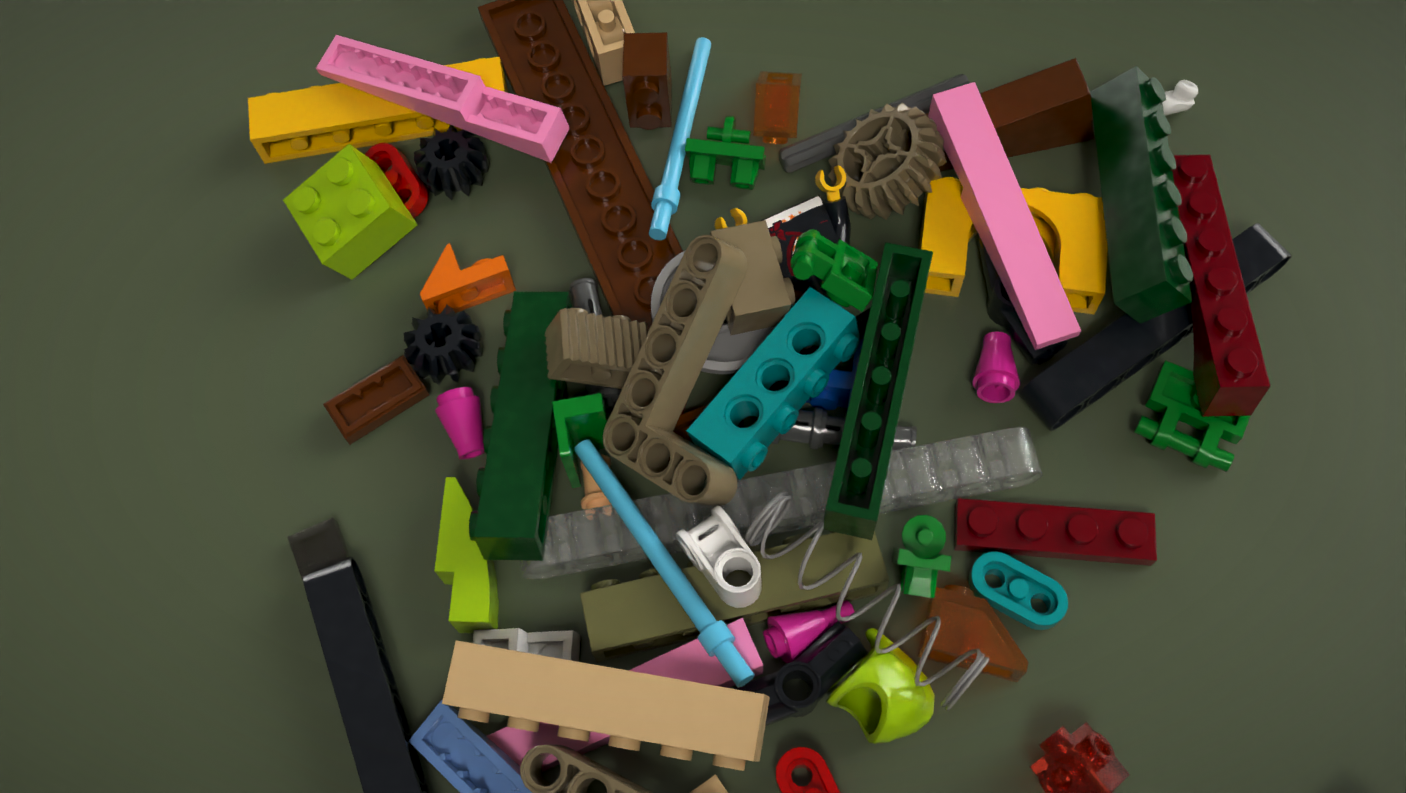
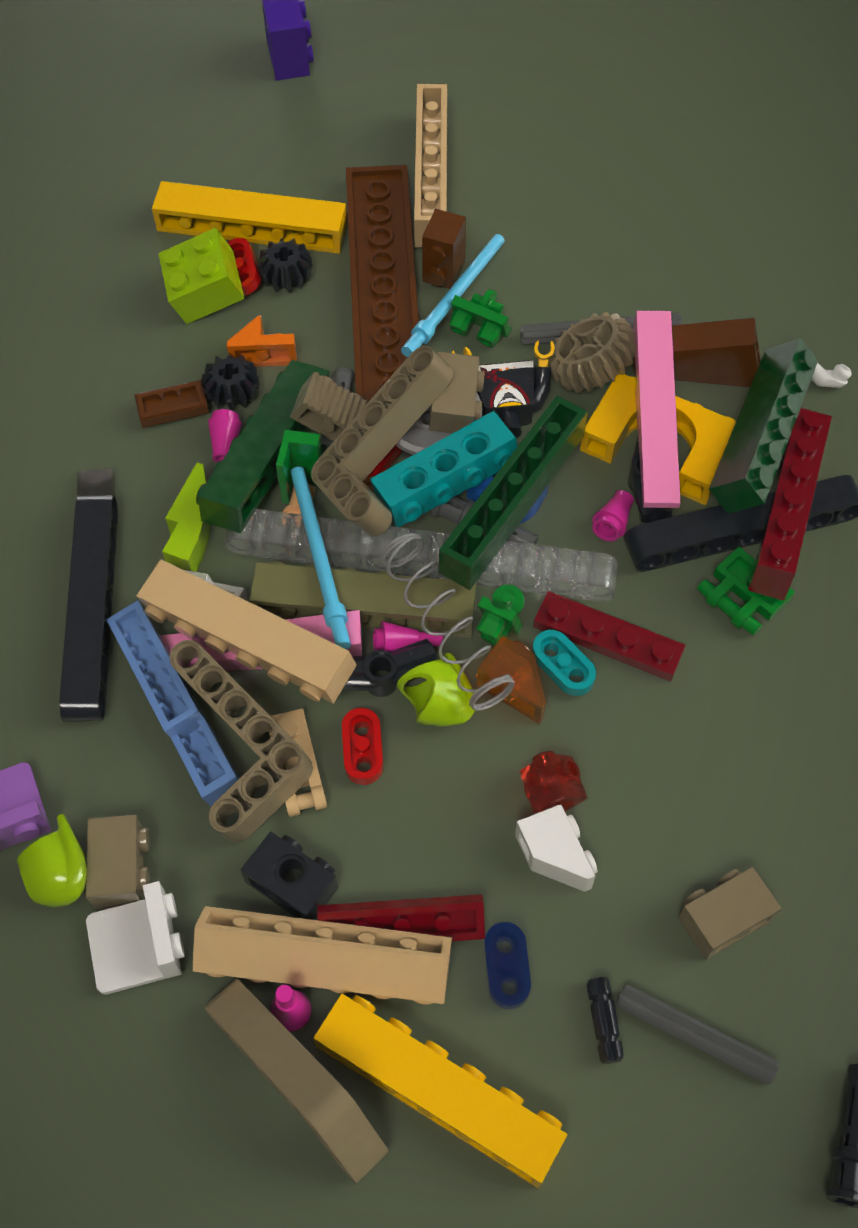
camera: 15 degrees right, 5 degrees down
(447, 96) = (298, 218): bright pink slope -> none
(719, 549) = (361, 563): white piece -> none
(777, 106) = (532, 295): clear orange slope -> none
(845, 271) = (518, 406): green plate -> none

